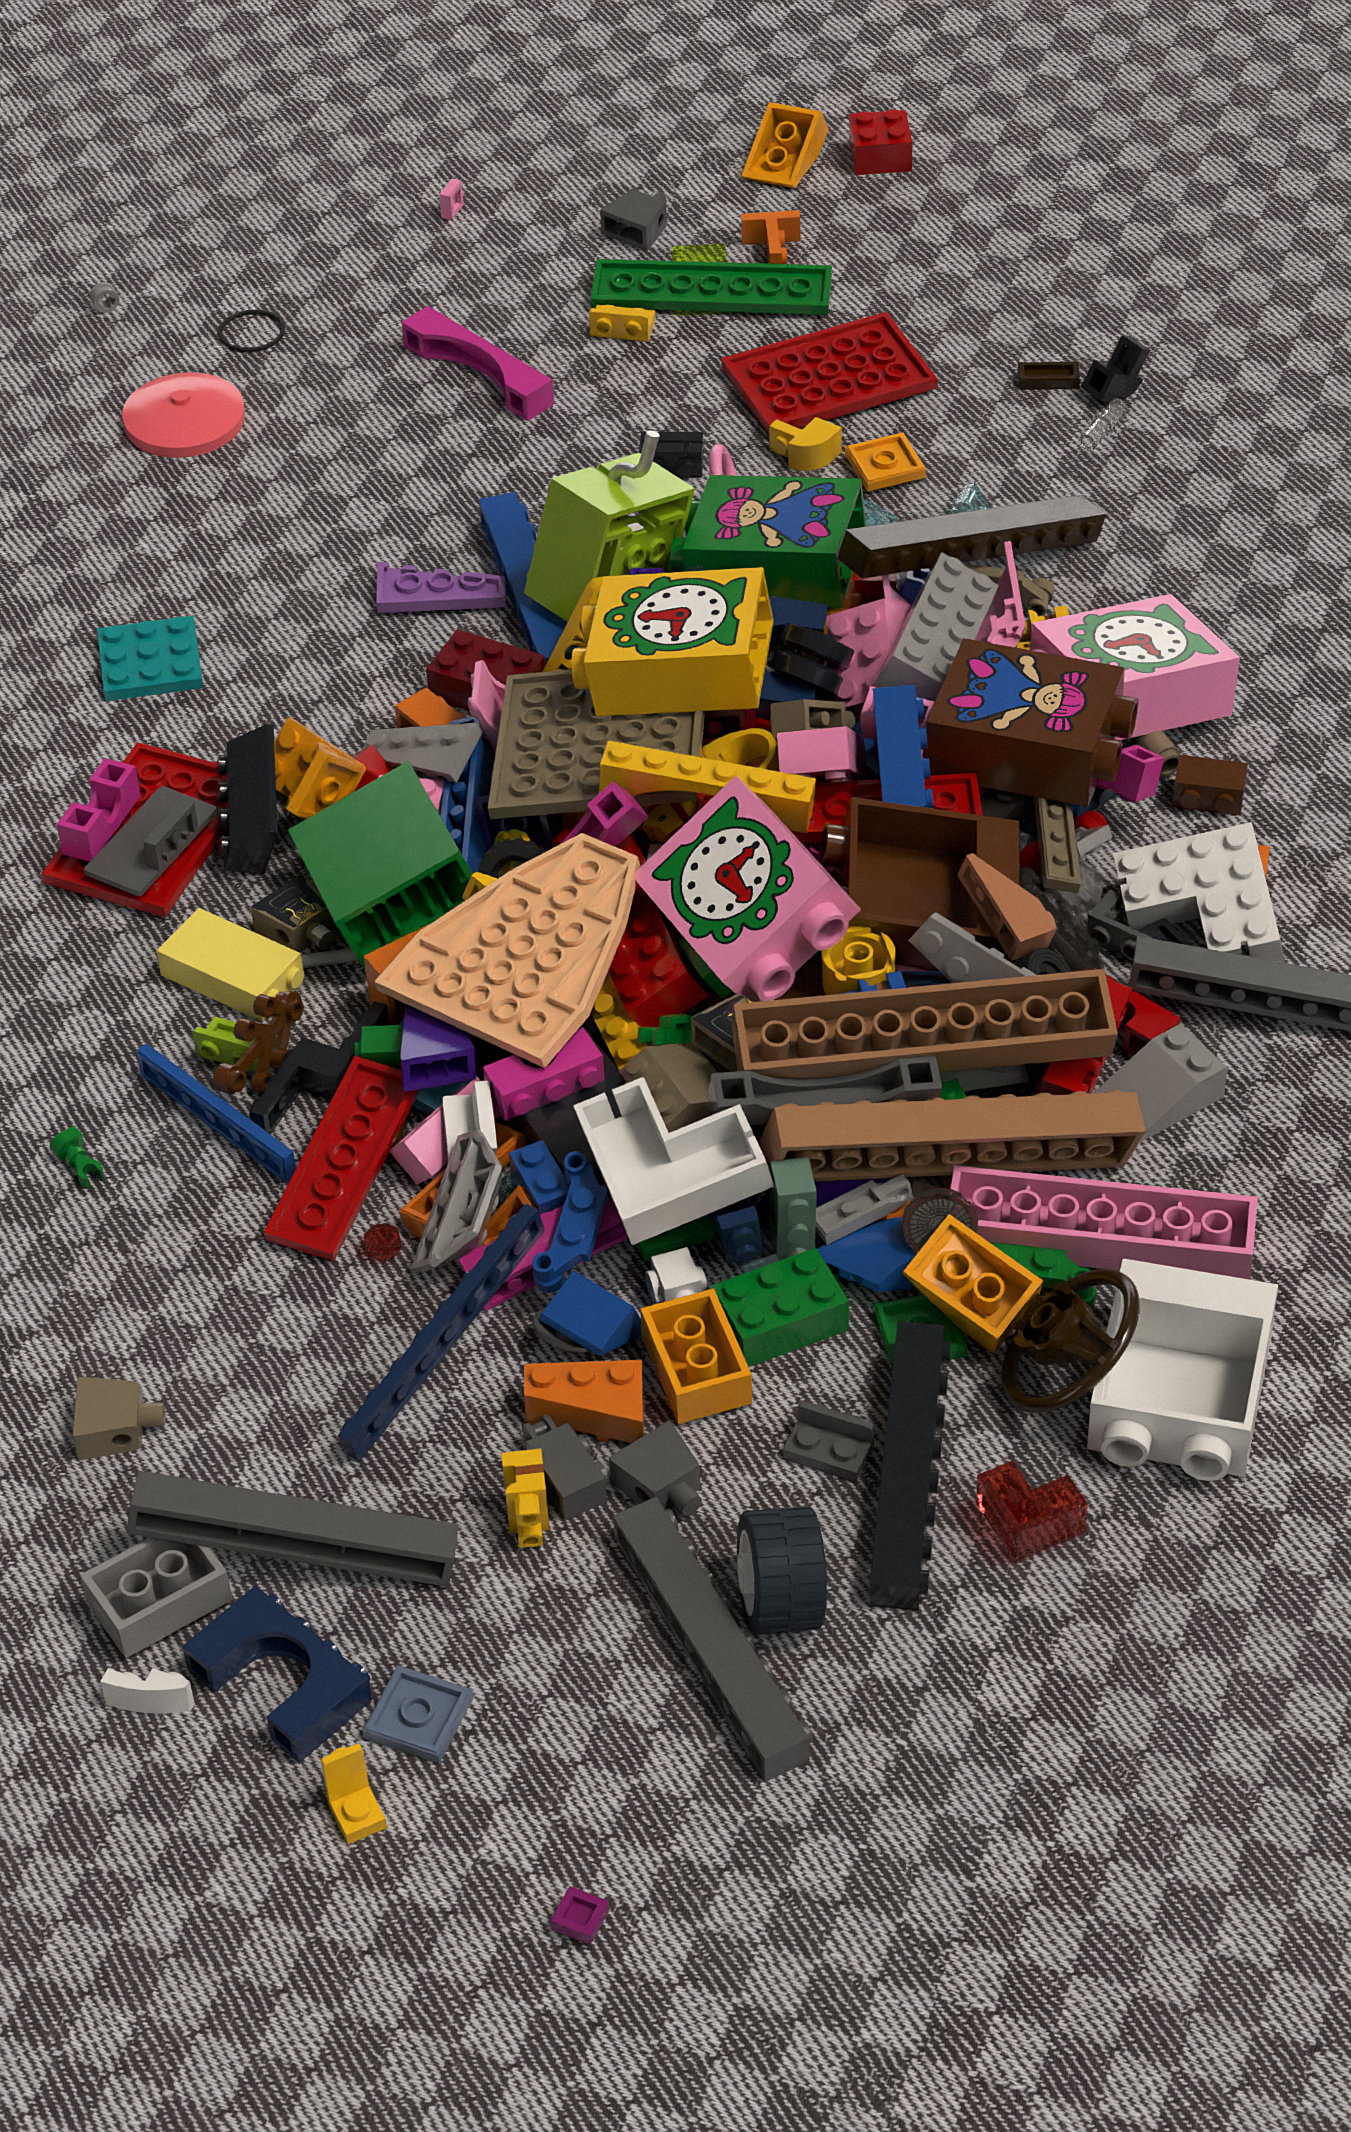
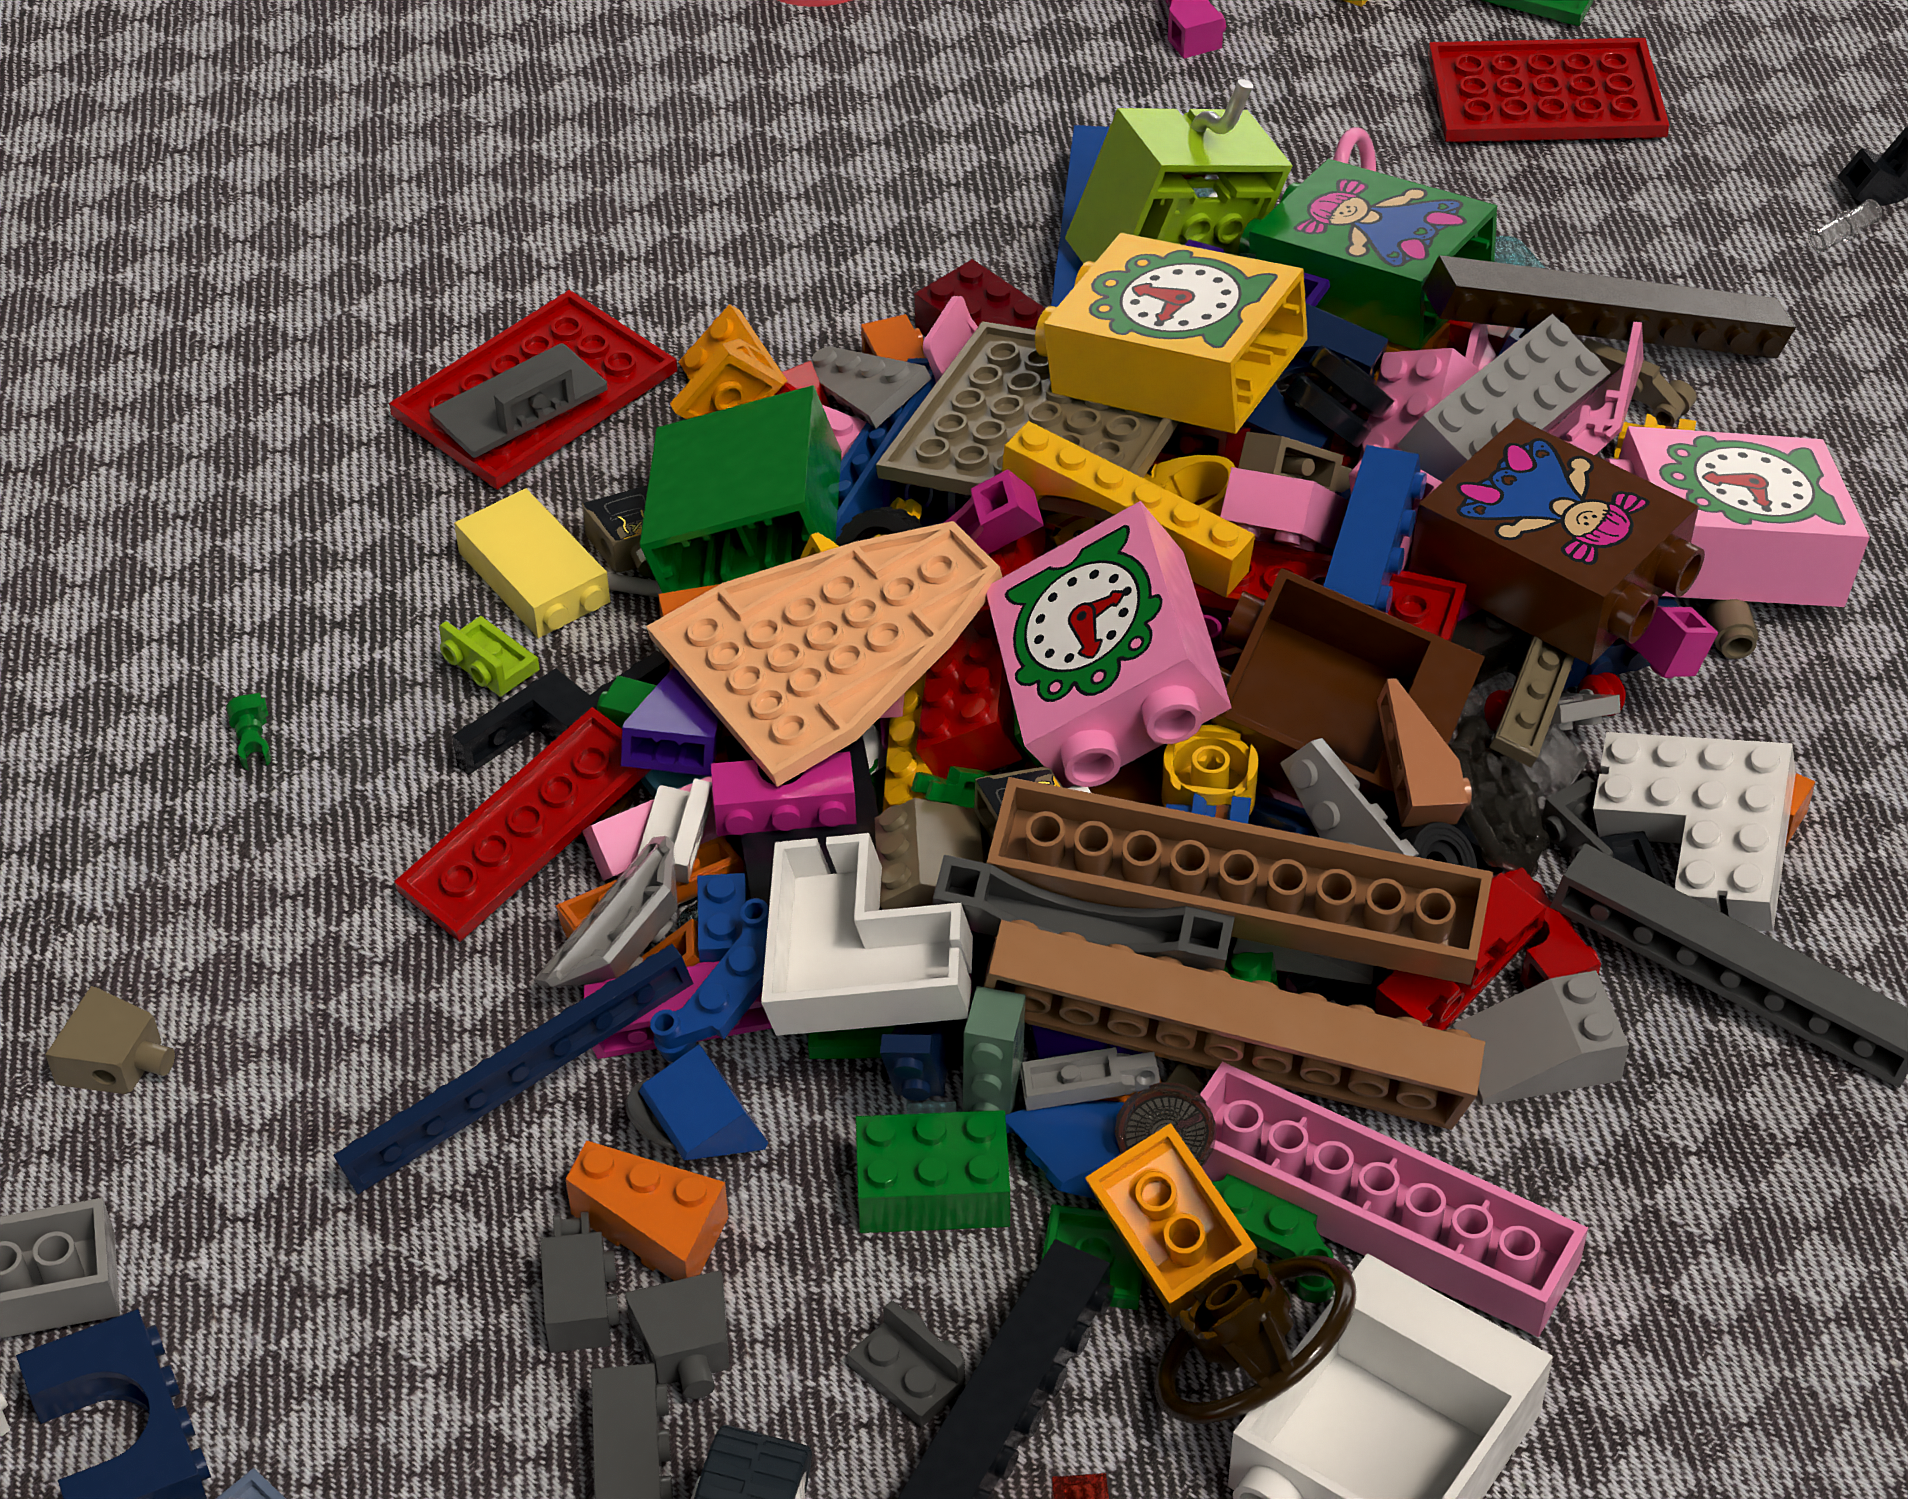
camera: 20 degrees right, 0 degrees up
(88, 828) = (501, 338): dark pink arch -> none
(149, 658) = (638, 205): teal plate -> none
(216, 1113) = (421, 724): blue tile -> none
(247, 801) = (639, 386): black slope -> none
(286, 1010) = (551, 632): reddish brown plant -> none
(292, 1528) = (212, 1254): dark grey brick -> none
(382, 1241) = (522, 936): clear red tile -> none
(425, 591) = (970, 211): medium lavender wing -> none
(526, 1495) = (507, 1310): yellow hips -> none
(674, 1276) = (827, 1096): white brick -> none
(679, 452) = (1315, 129): black brick -> none
(696, 1356) = (797, 1199): light orange brick -> none
(806, 448) = (1482, 164): yellow brick -> none
(885, 462) = (1564, 203): light orange plate -> none
(969, 500) = (1642, 267): clear light blue tile -> none
(1048, 375) = (1806, 155): dark brown tile -> none
(1210, 785) = (1778, 684): reddish brown brick -> none

